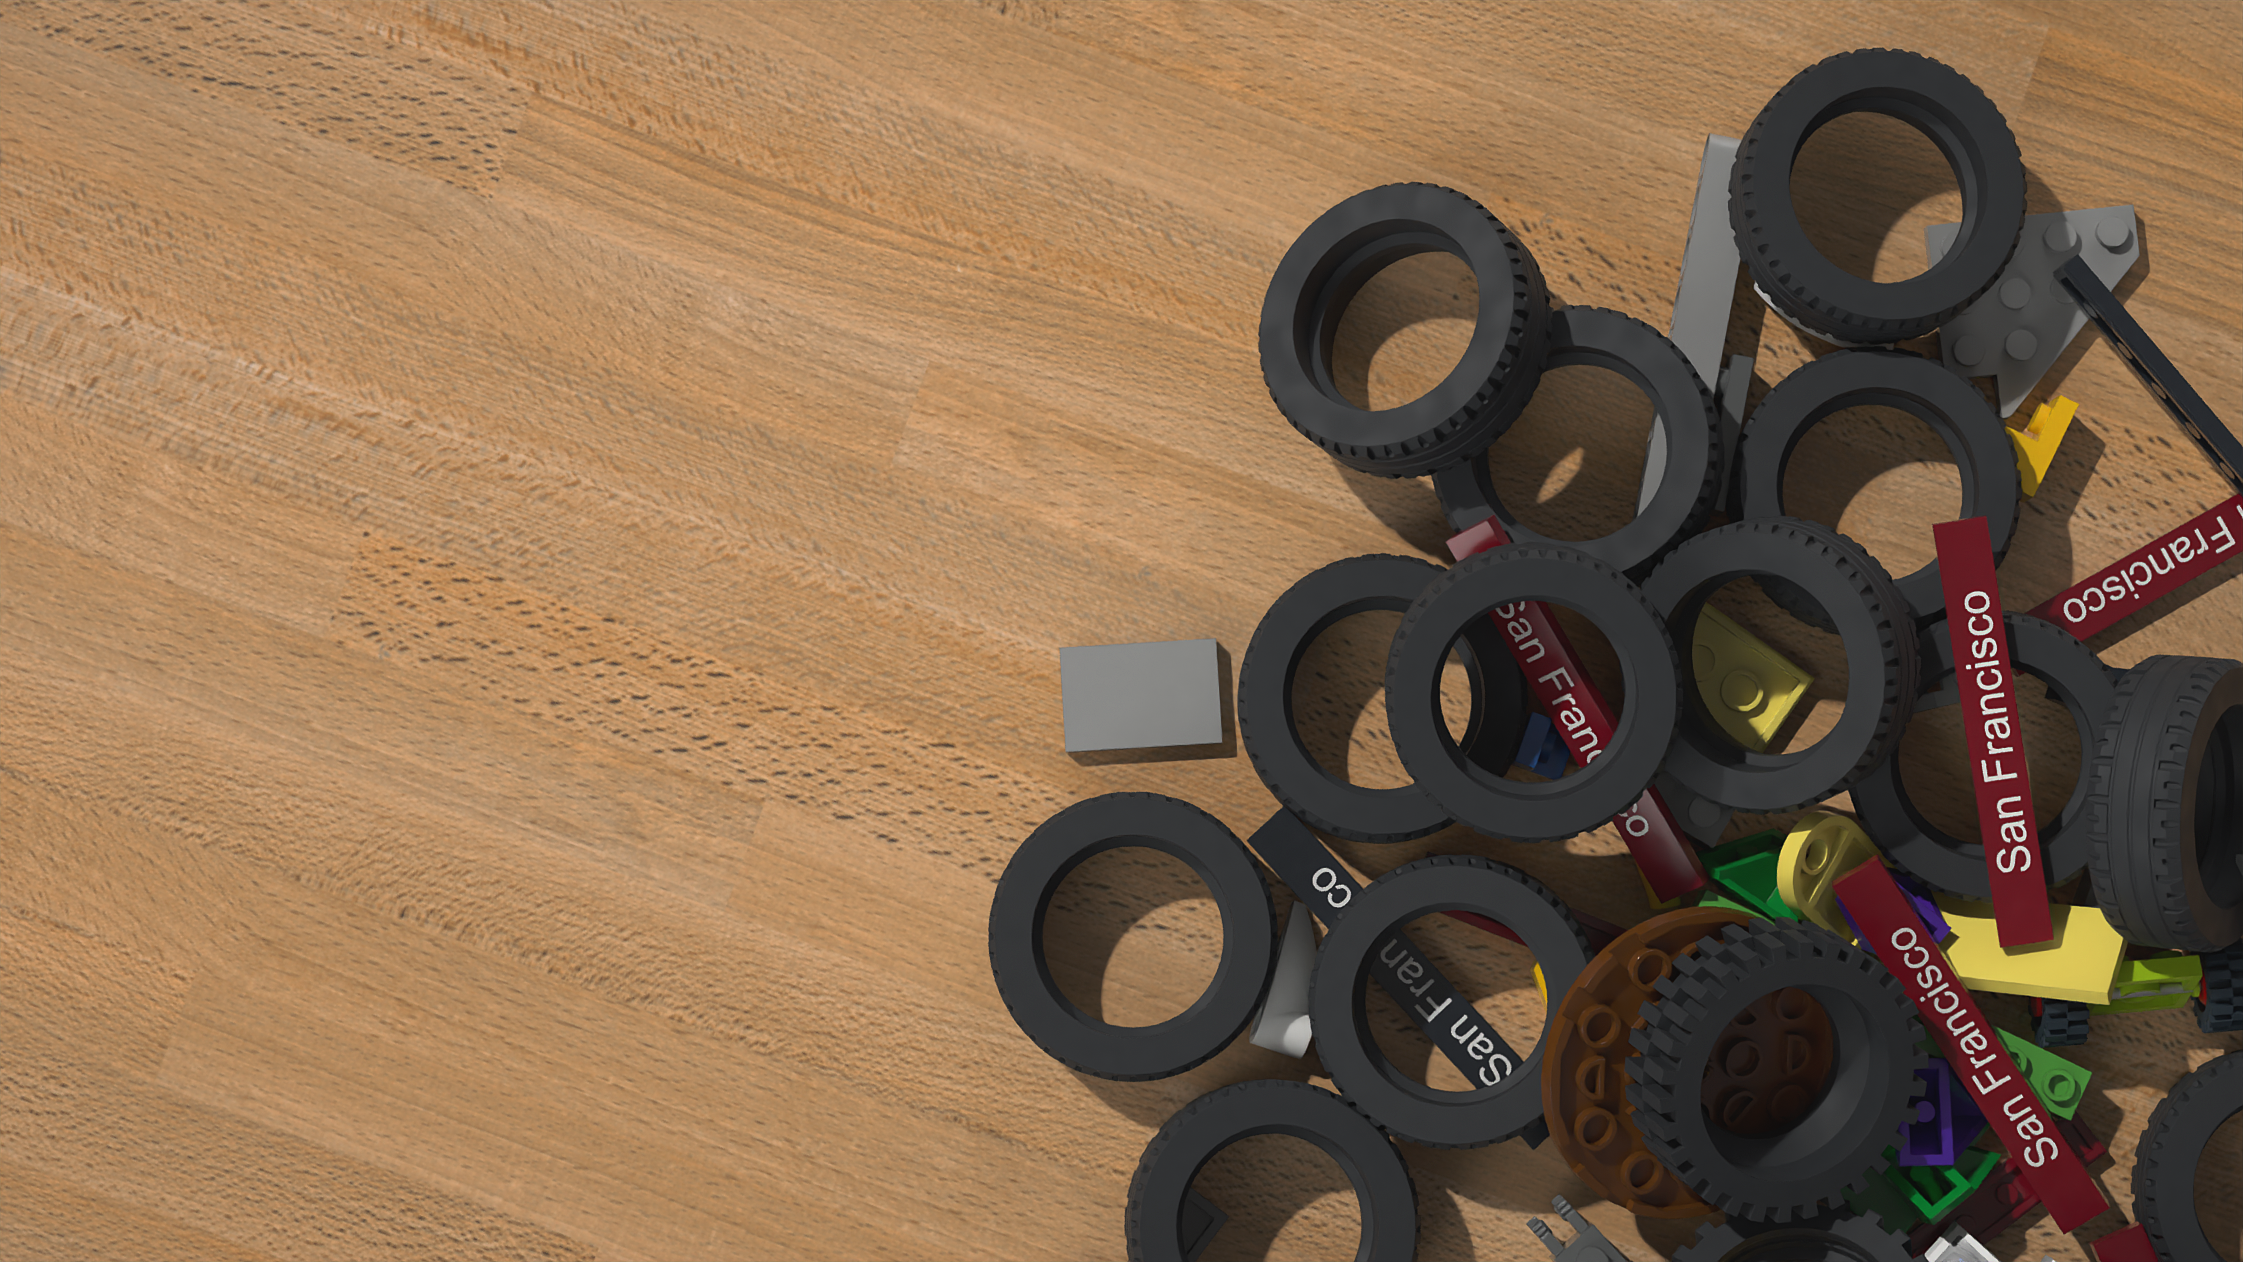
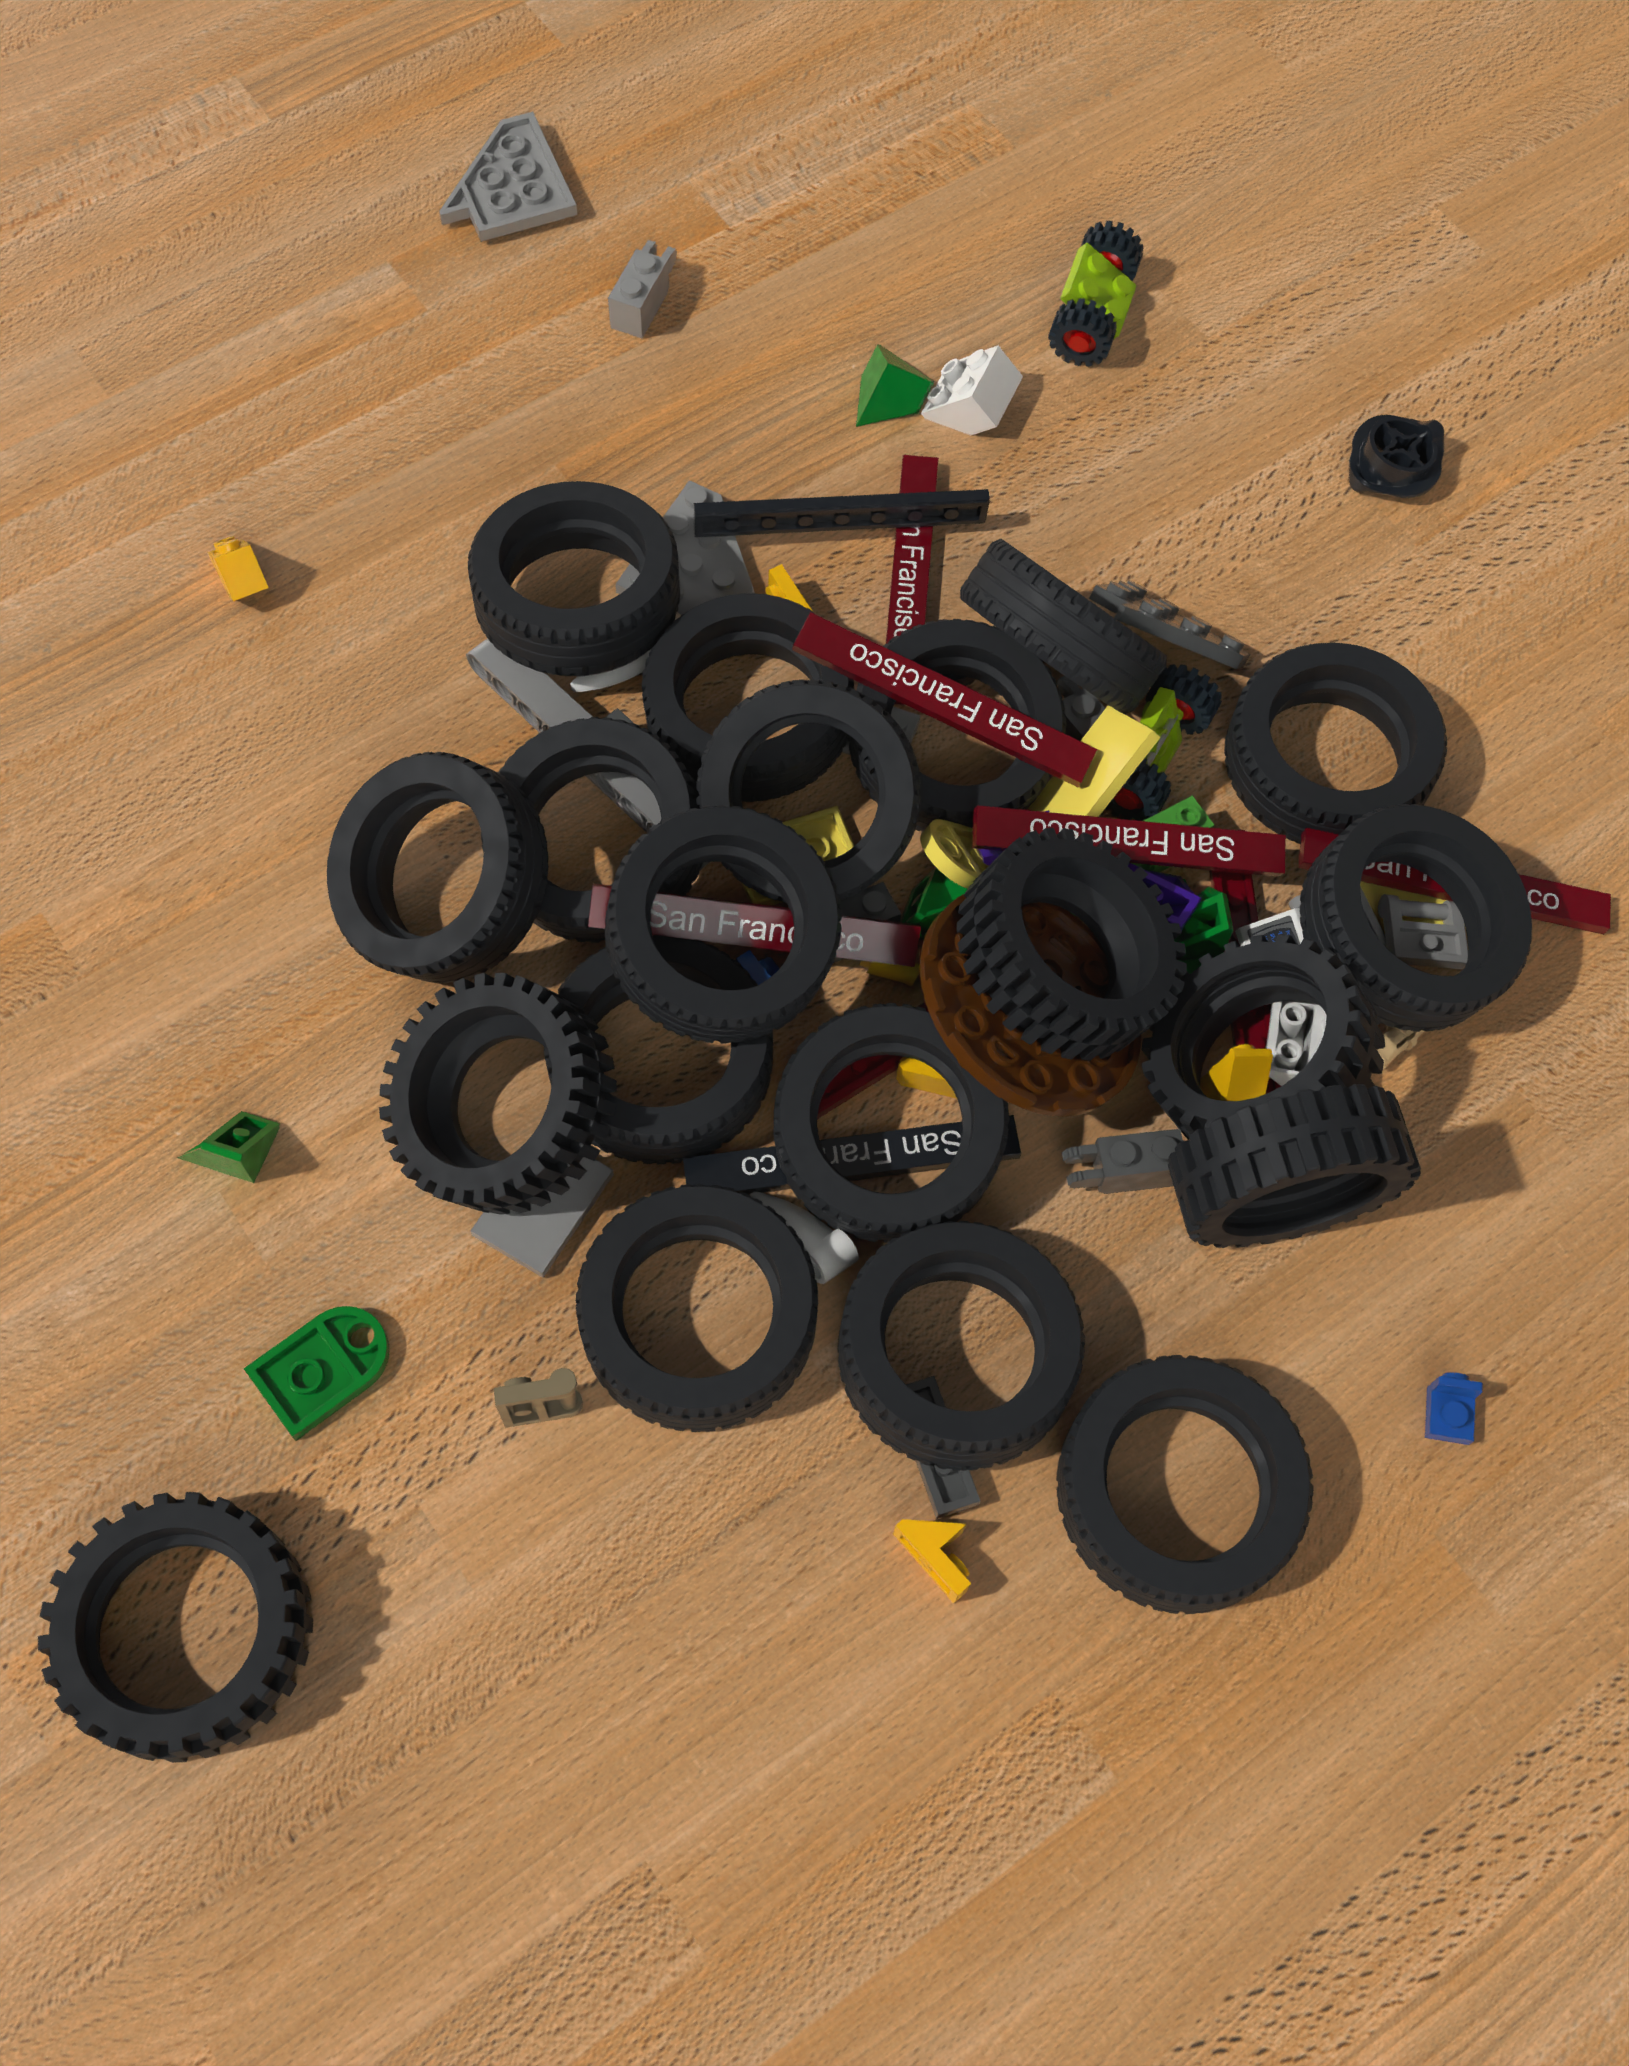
camera: 60 degrees left, 20 degrees down
(420, 595) = (99, 1571): none -> black tyre
(823, 605) = (319, 1369): none -> green tile
(924, 838) = (538, 1401): none -> dark tan plate
(985, 340) = (236, 1147): none -> green slope
(1139, 521) = (432, 1073): none -> black tyre

